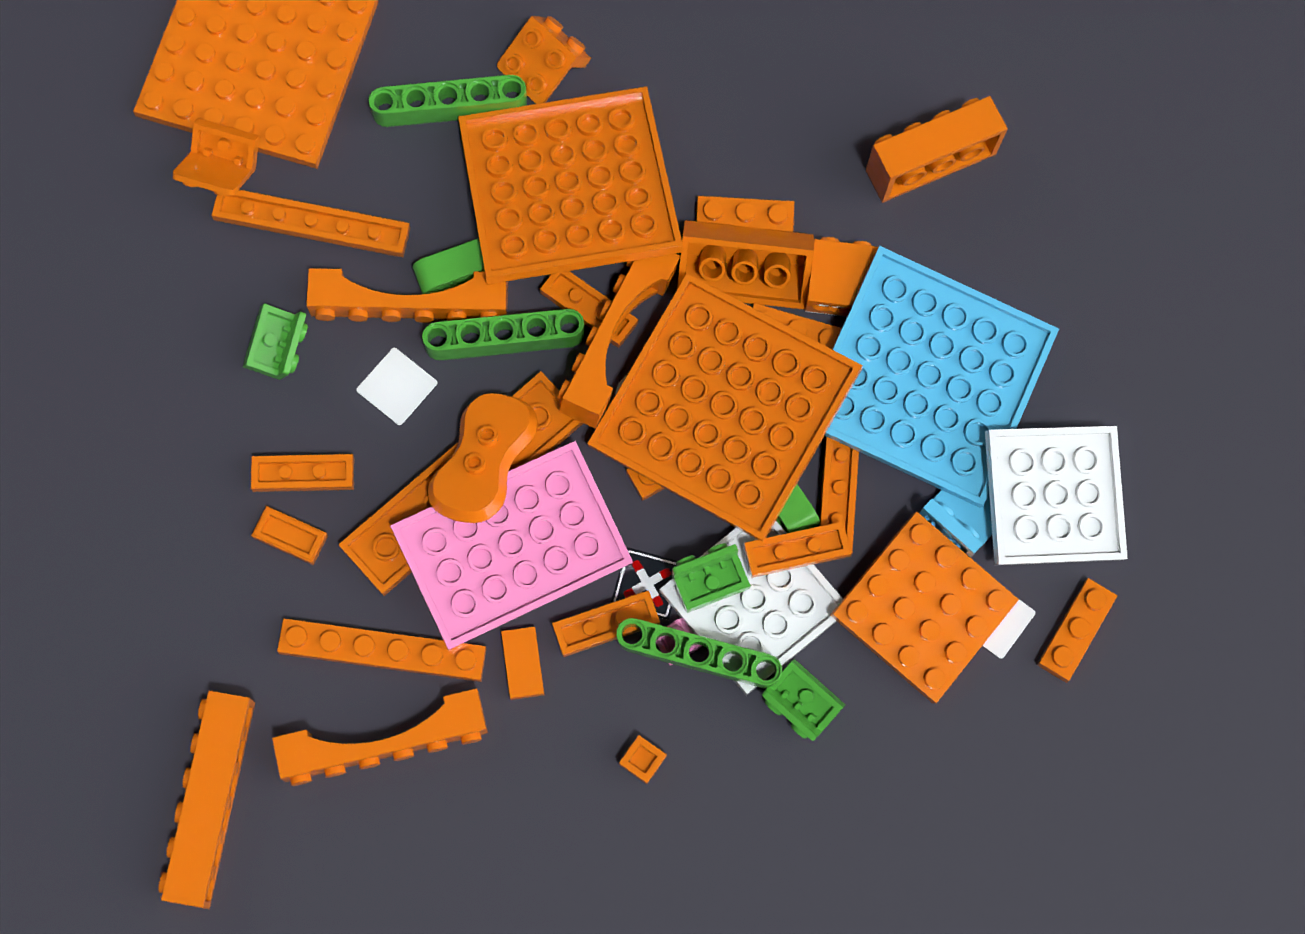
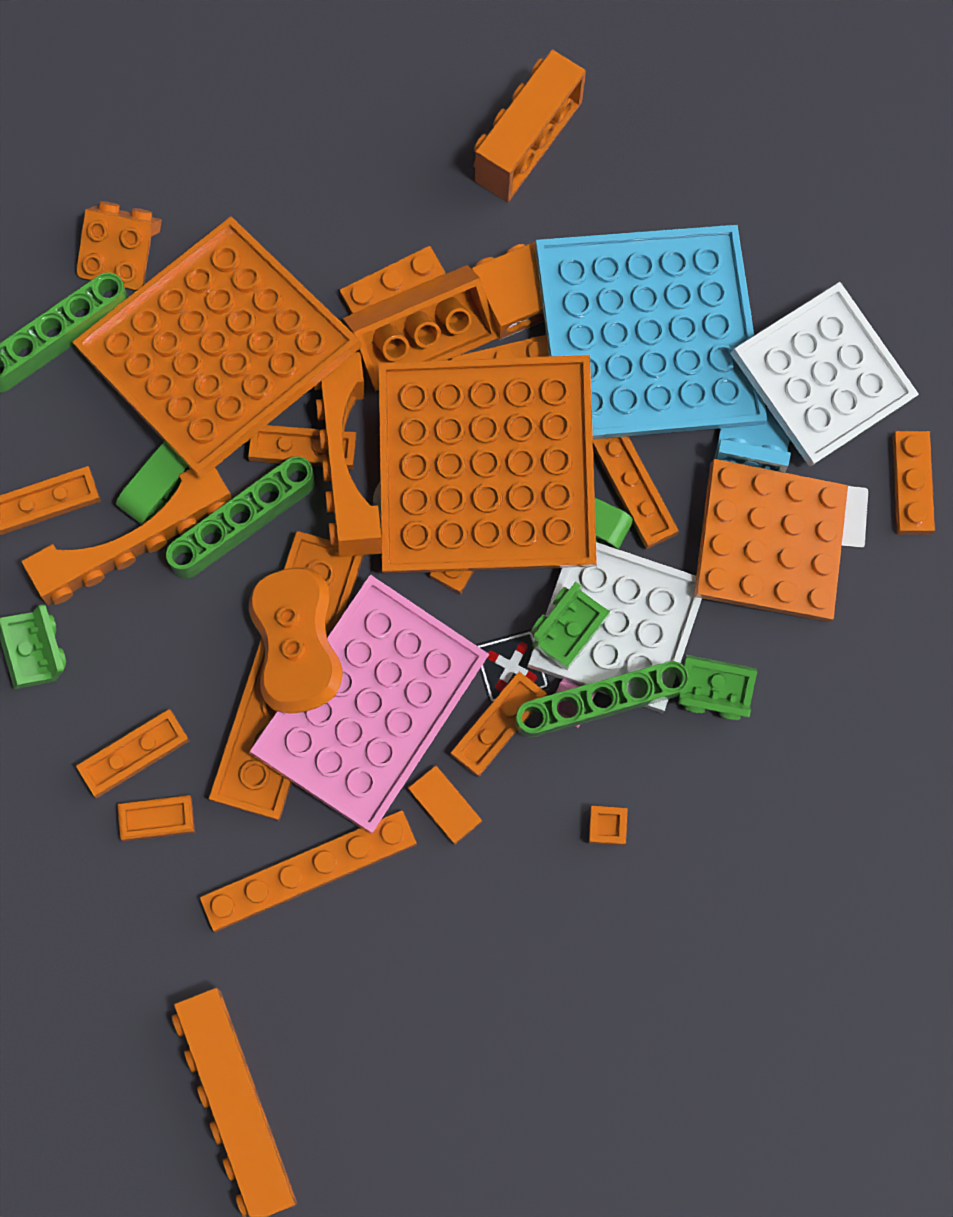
camera: 30 degrees left, 0 degrees up
(303, 756) = (299, 1010): orange arch -> none
(397, 386) = (169, 623): white sticker -> none
(797, 549) = (630, 555): orange plate -> none

